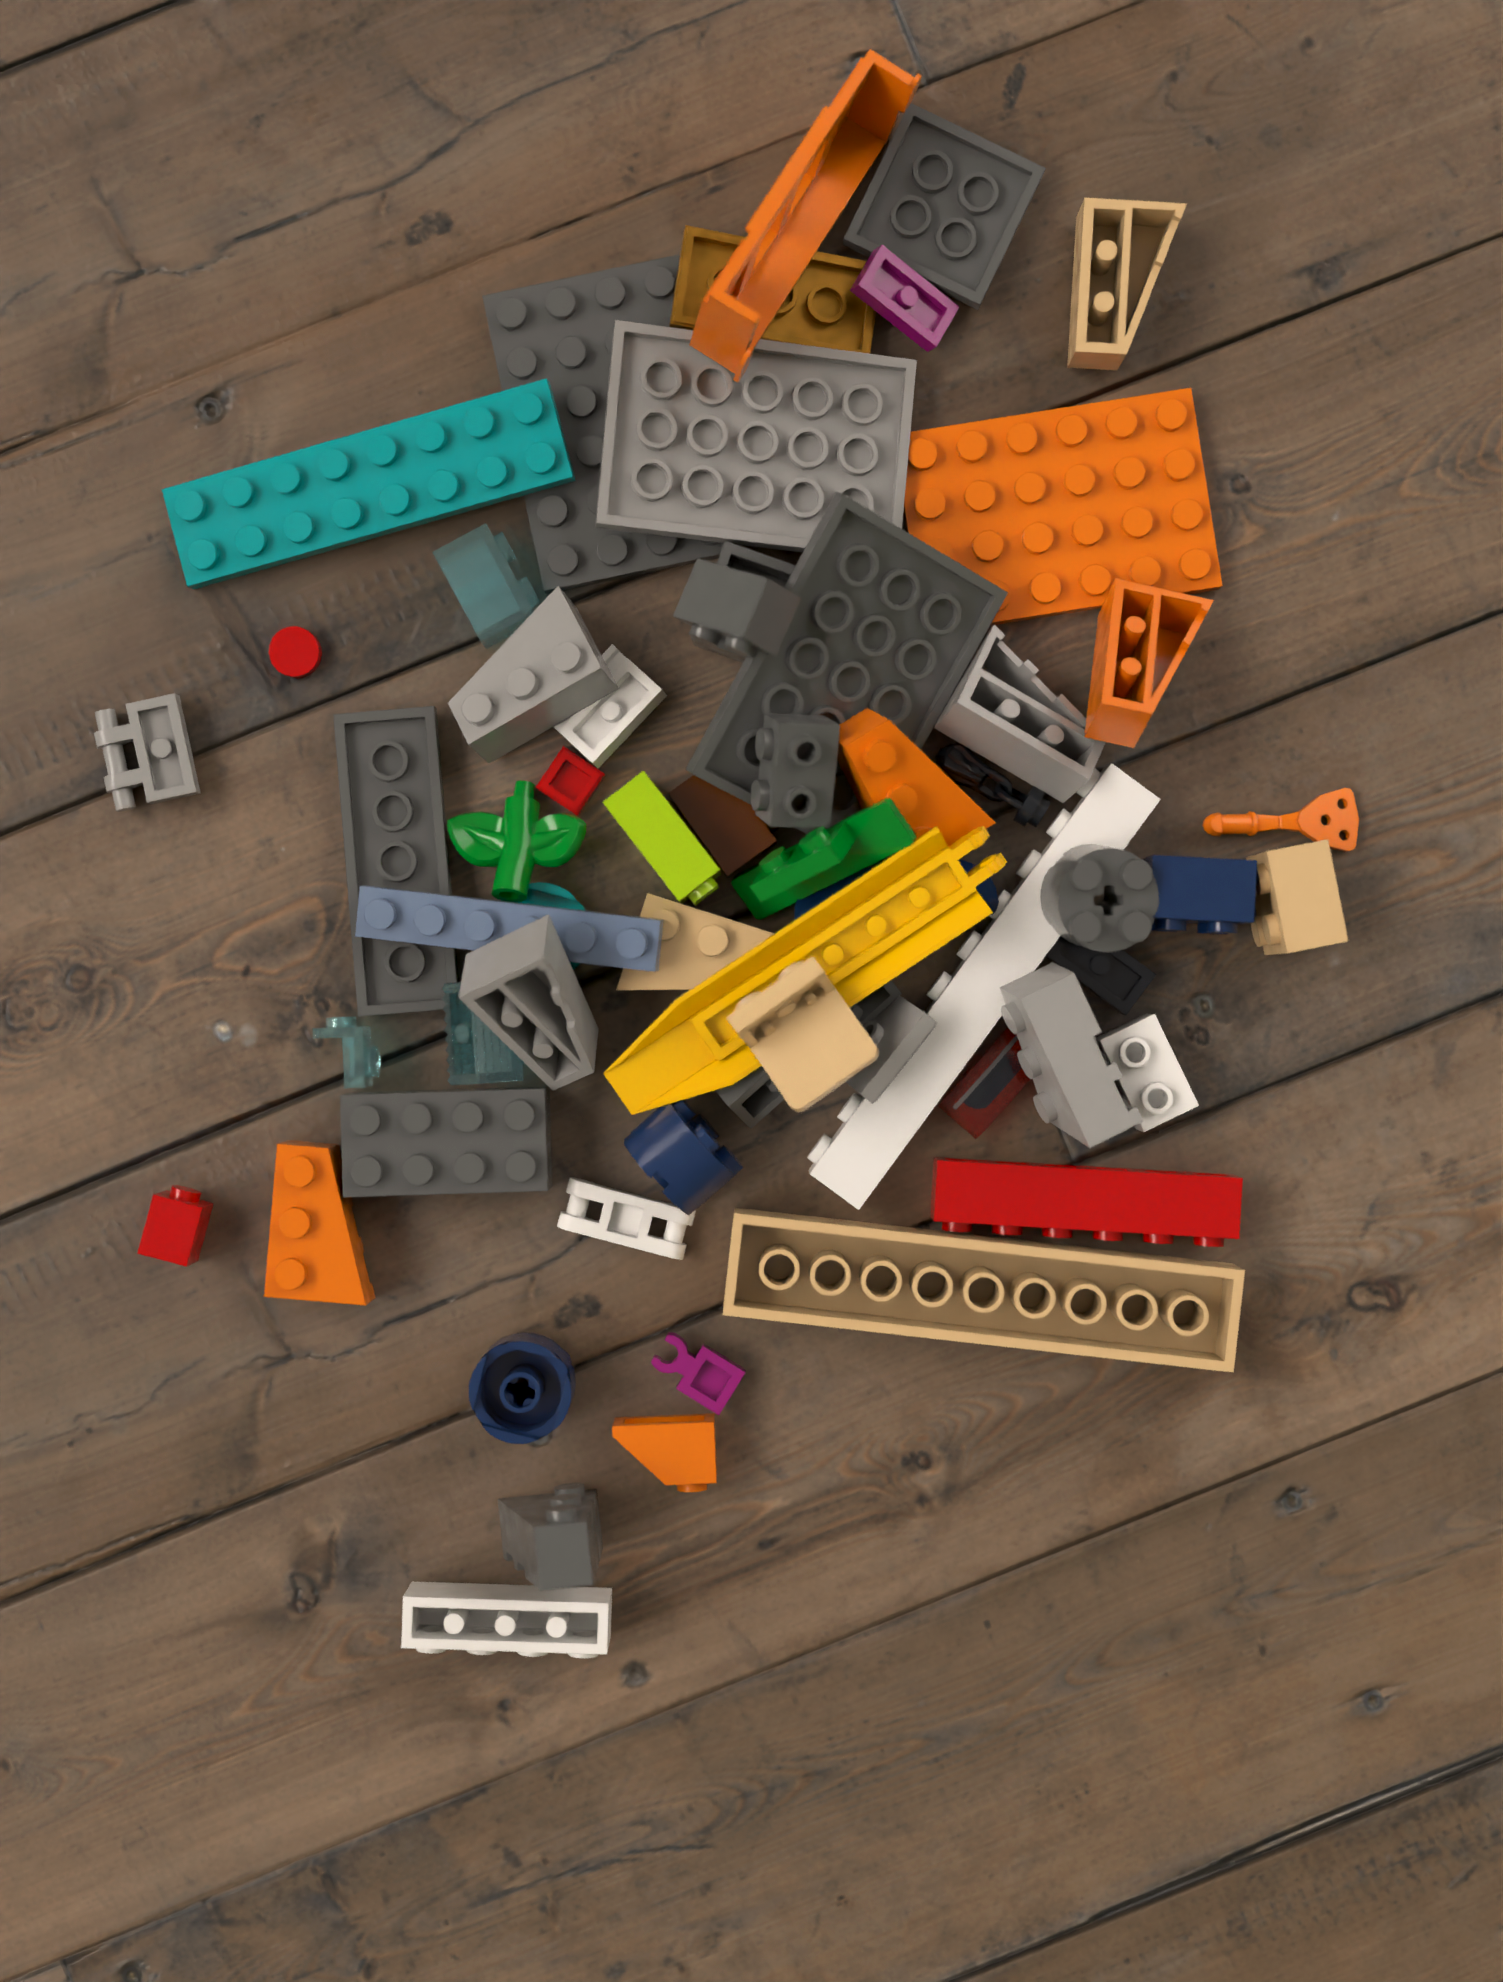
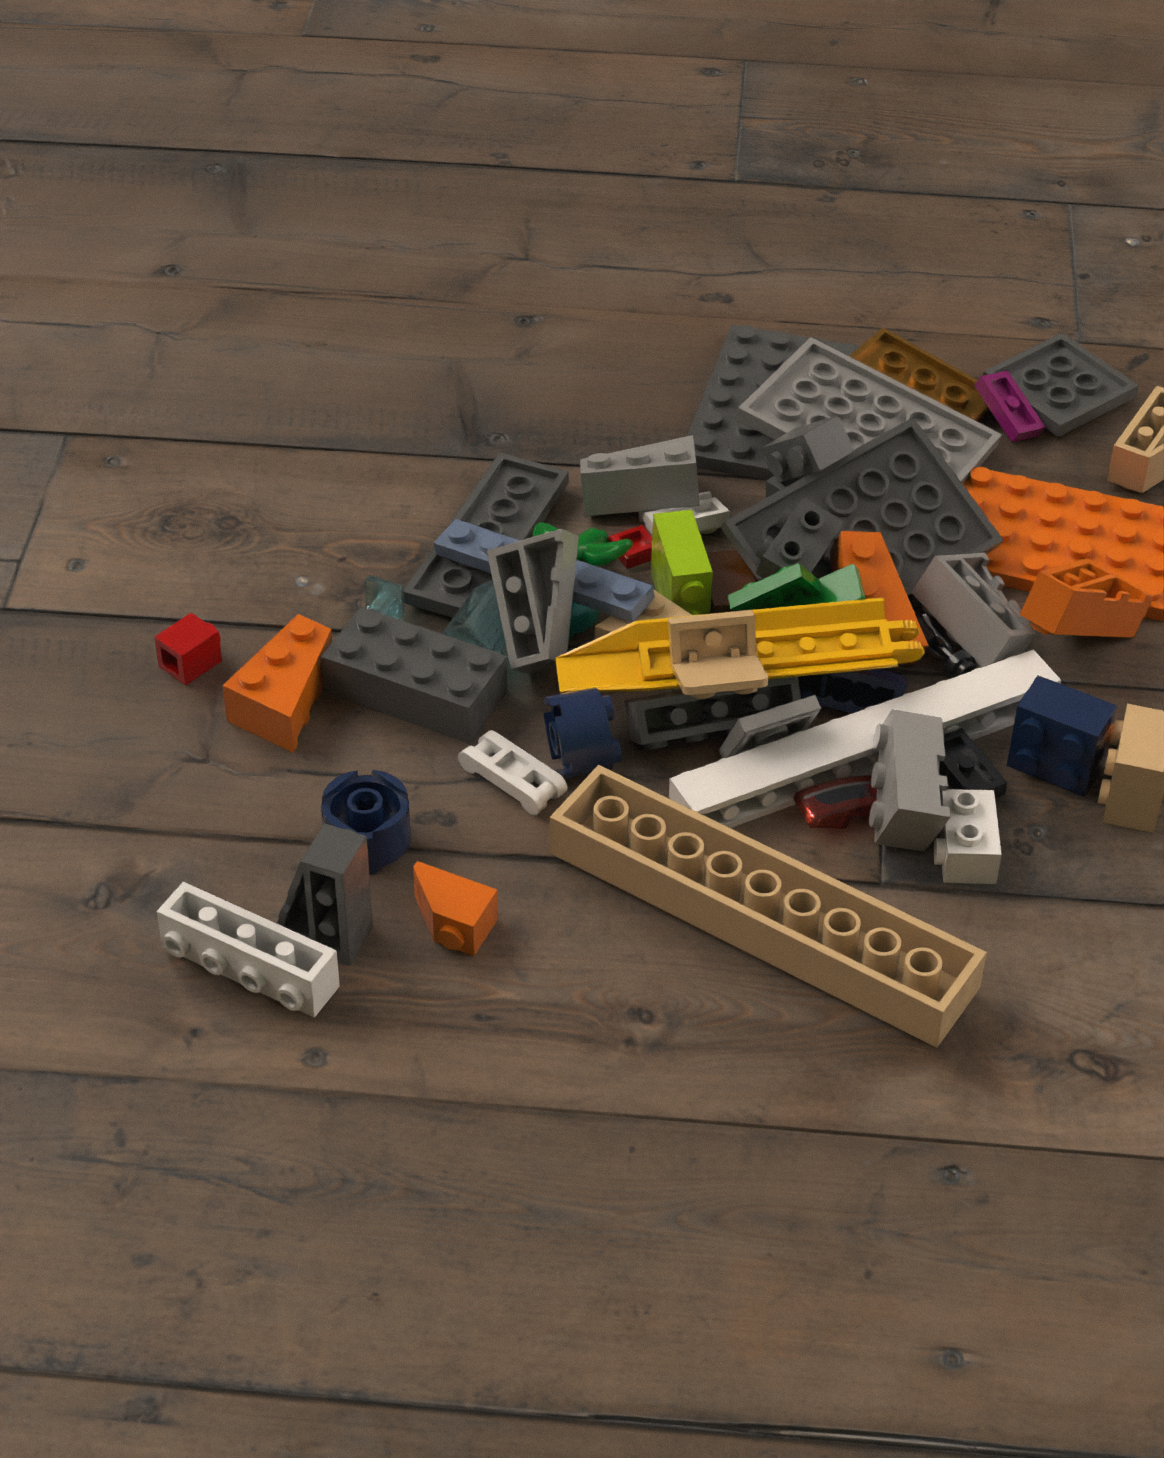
camera: 20 degrees right, 45 degrees down
(161, 751) = (373, 436): light grey plate -> none
(295, 652) = (495, 429): red tile -> none
(369, 484) = (601, 369): teal plate -> none
(486, 585) = (644, 422): clear light blue brick -> none
(705, 1376) = (511, 878): magenta plate -> none
(801, 211) = (1014, 320): orange piece -> none
(1086, 1198) = (893, 882): red brick -> none
(1128, 901) = (984, 692): dark grey brick -> none

